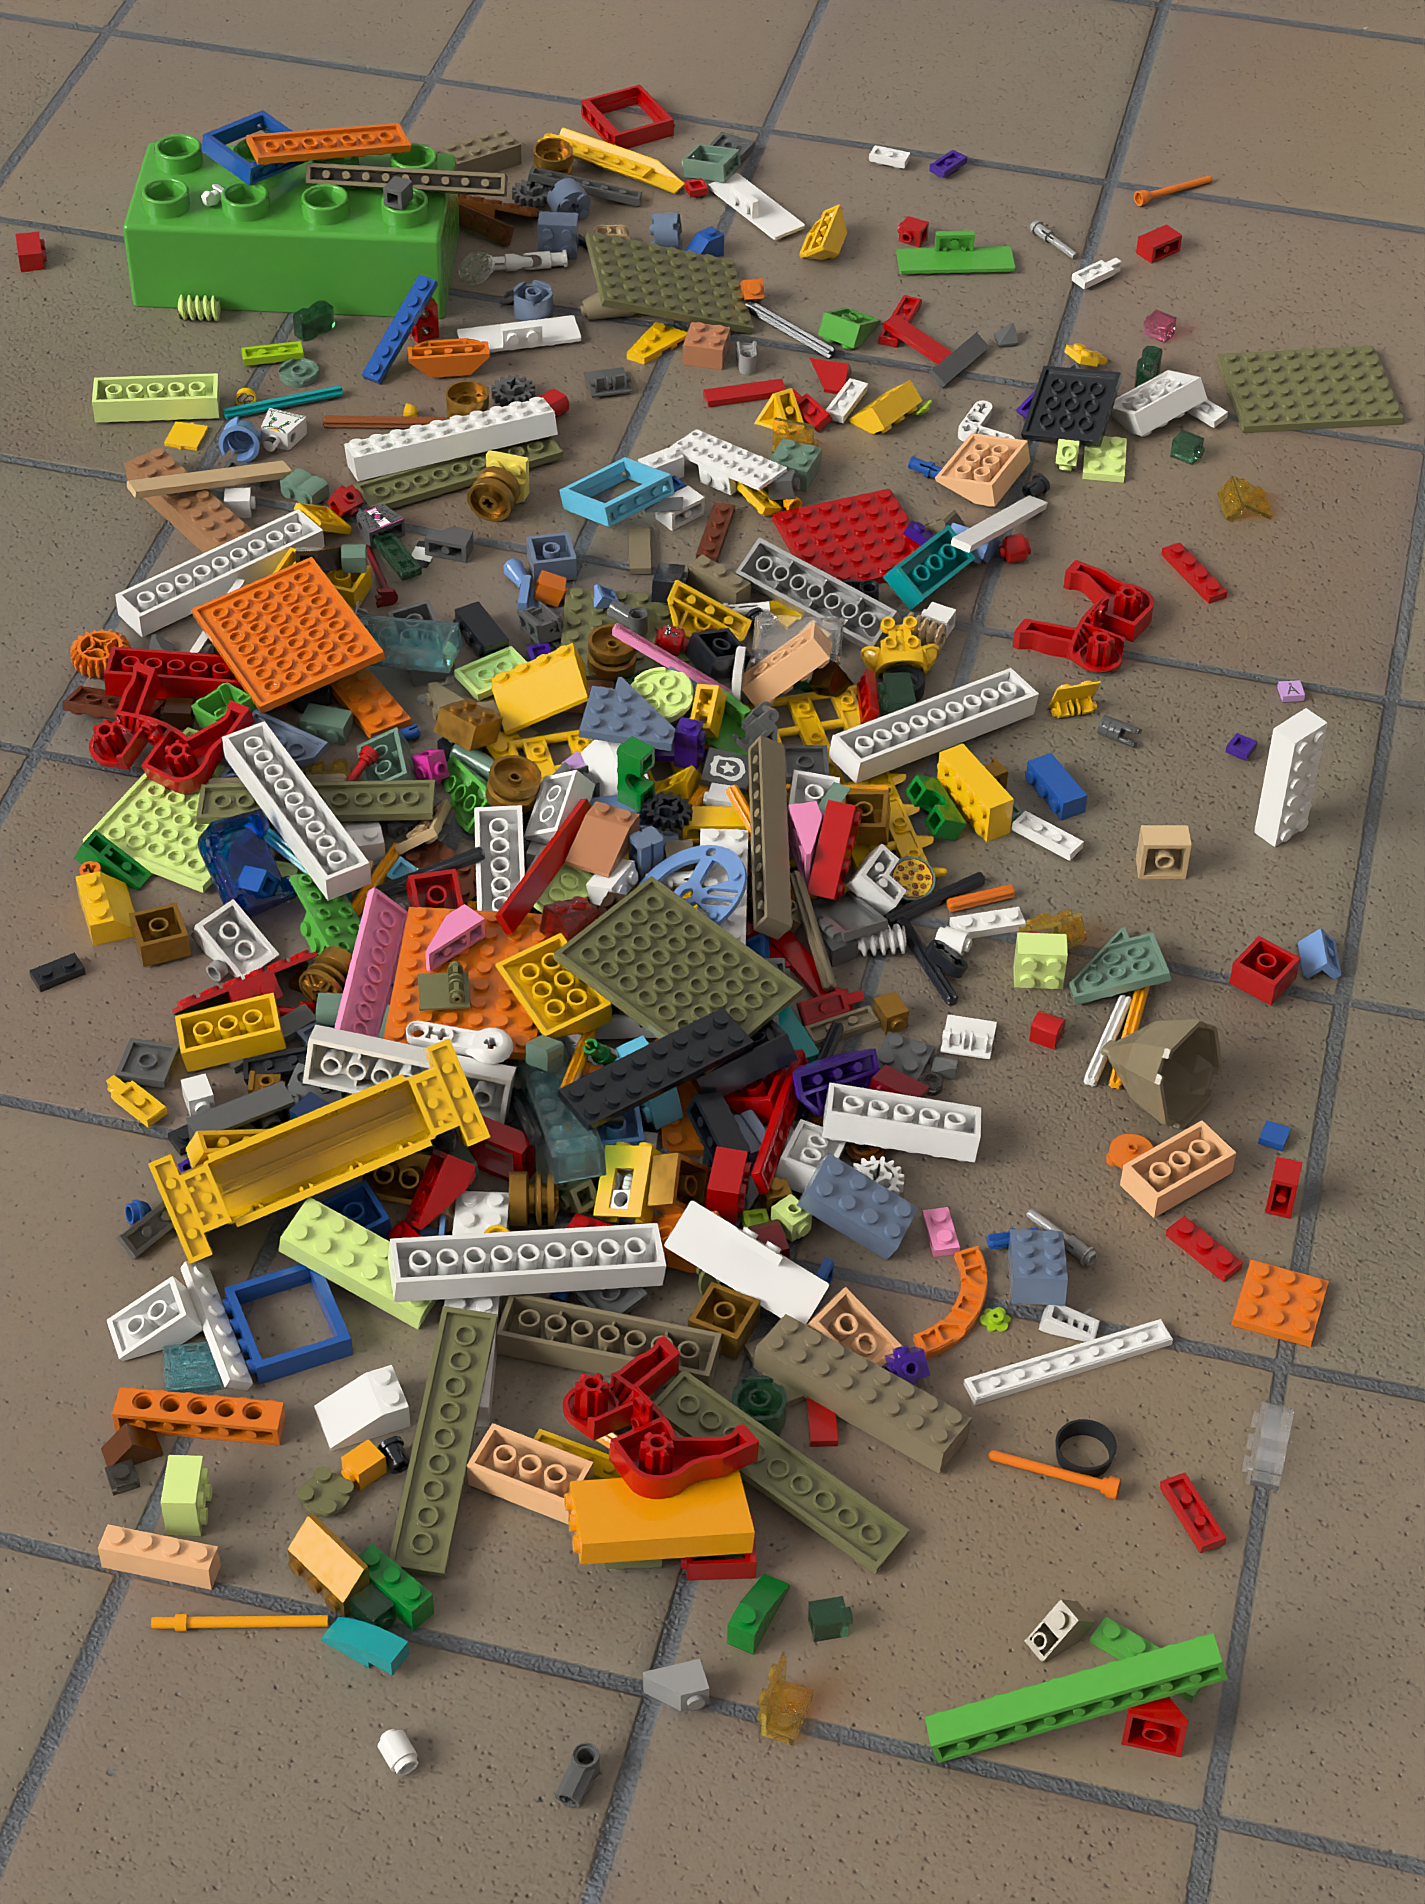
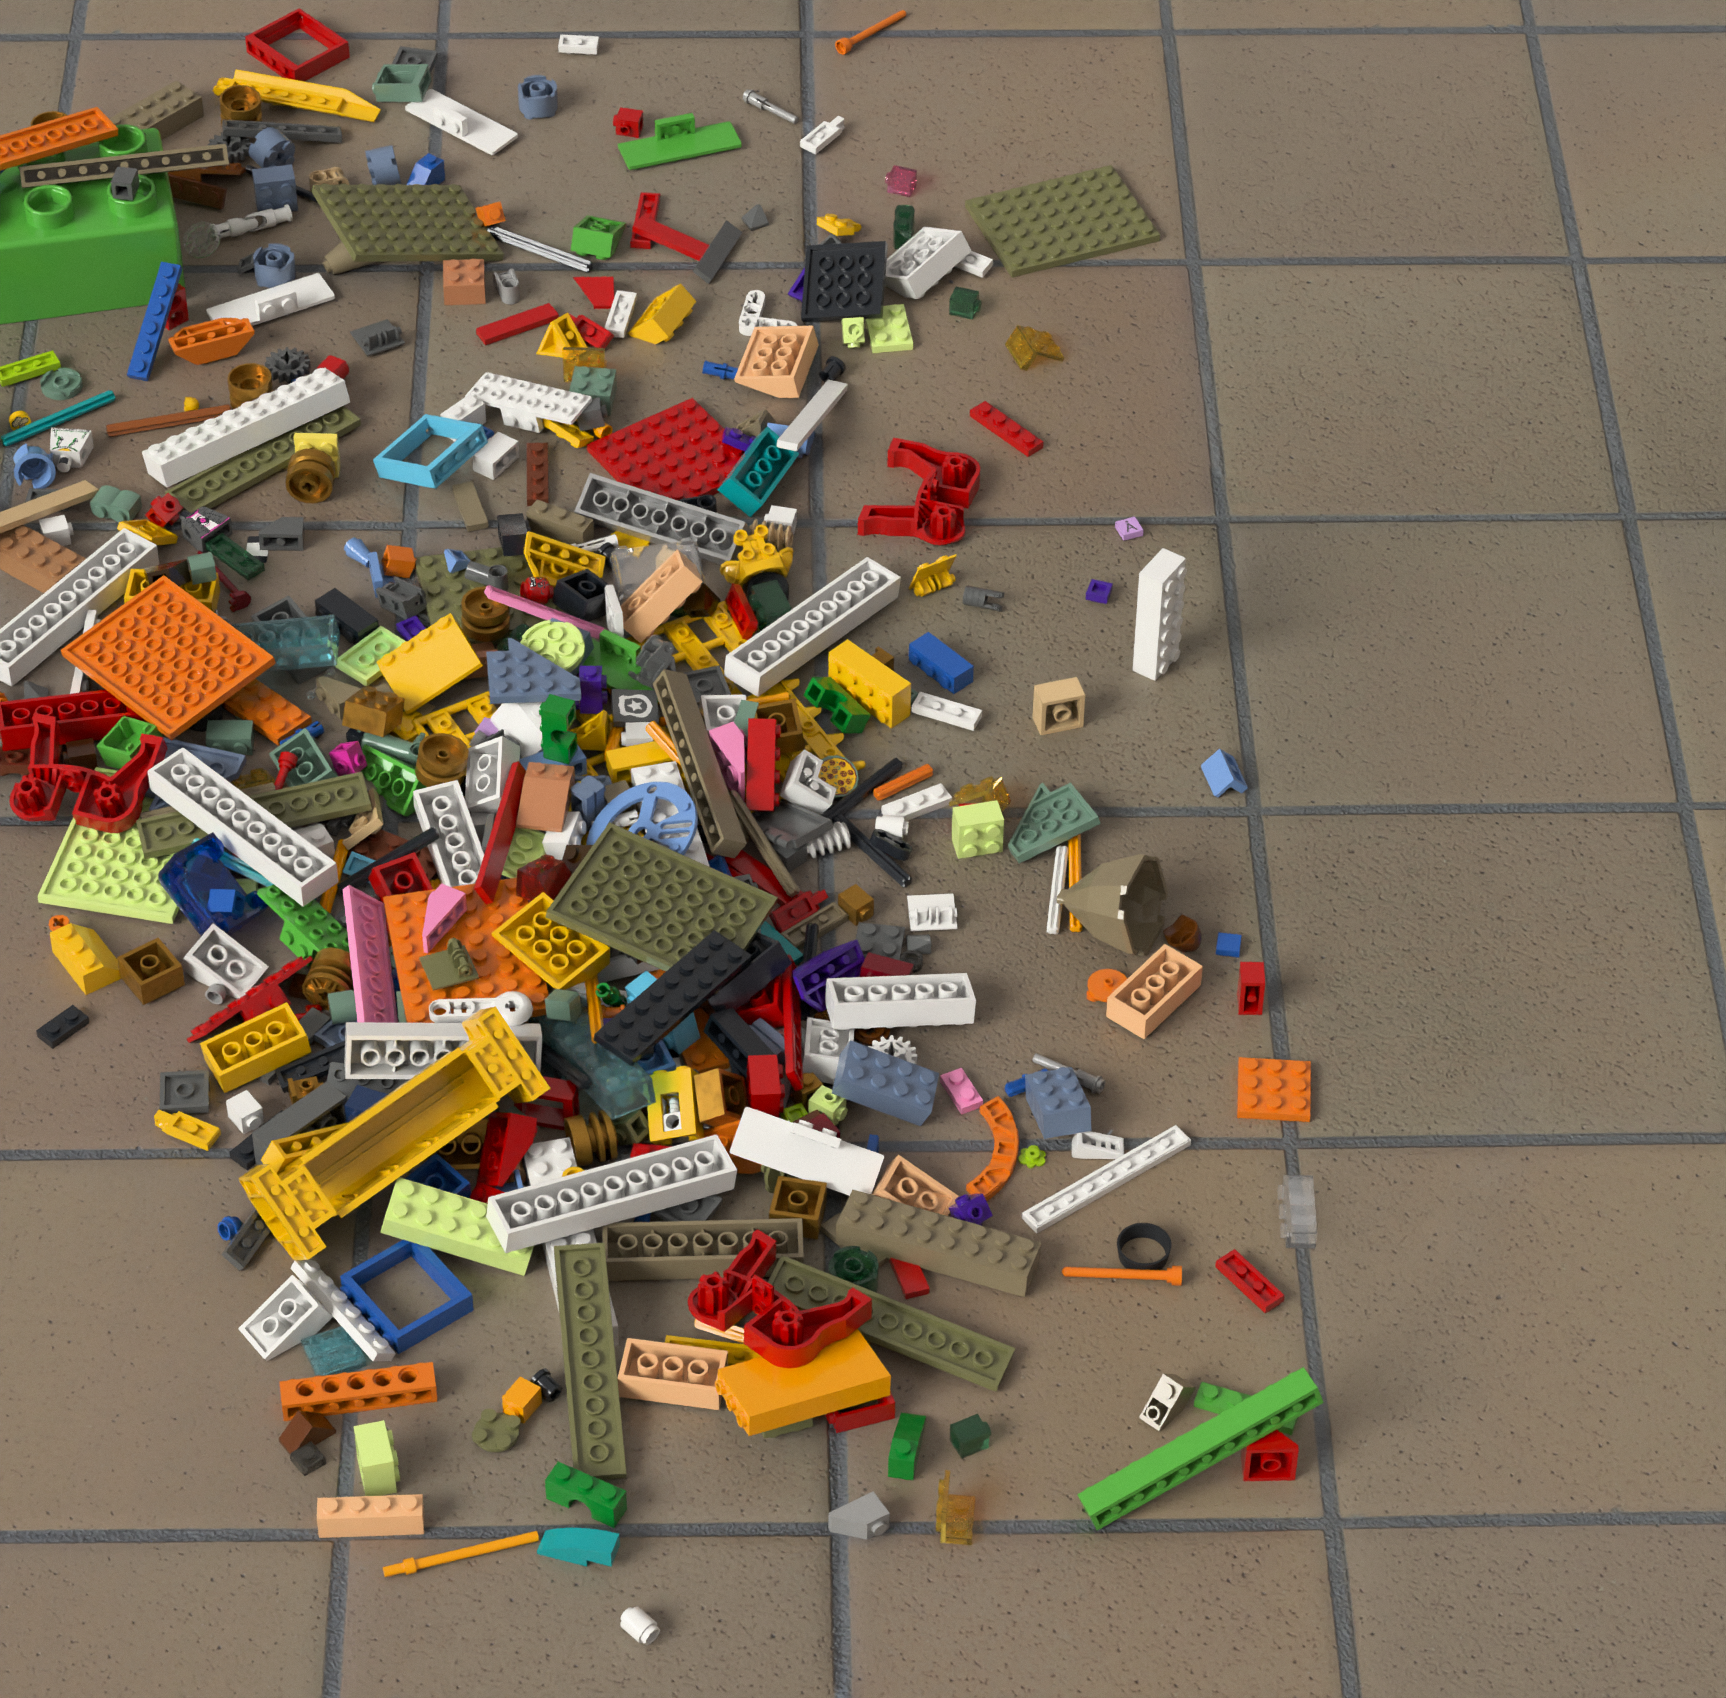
camera: 15 degrees left, 0 degrees up
(112, 860) = (78, 910): green slope -> none
(313, 320) = (57, 326): clear green brick -> none
(327, 1565) = (526, 1489): slope -> none
(364, 1409) = (504, 1353): white slope -> none
(373, 1607) = (575, 1514): clear green brick -> none
(552, 554) = (389, 527): sand blue brick -> none
(578, 1775) = (801, 1608): dark grey piece -> none
(654, 341) = (410, 285): yellow wing -> none
(666, 504) = (484, 455): dark grey sticker -> none
(666, 811) = (595, 758): black gear -> none
(696, 187) = (394, 112): red plate -> none
(709, 708) = (601, 651): yellow brick -> none
(825, 236) = (543, 142): yellow wedge -> none
(833, 191) = (537, 97): none -> sand blue brick
(923, 408) = (698, 308): lime plant -> none
(948, 164) = (640, 42): dark purple plate -> none
(1015, 548) = (831, 436): red head -> none
(1047, 1029) = (1001, 891): red piece -> none
(1159, 244) = (875, 93): red brick -> none
(1204, 1249) = (1195, 1056): red plate -> none
(1228, 1115) = (1184, 934): none -> reddish brown cap
(1264, 970) = (1180, 797): red brick -> none

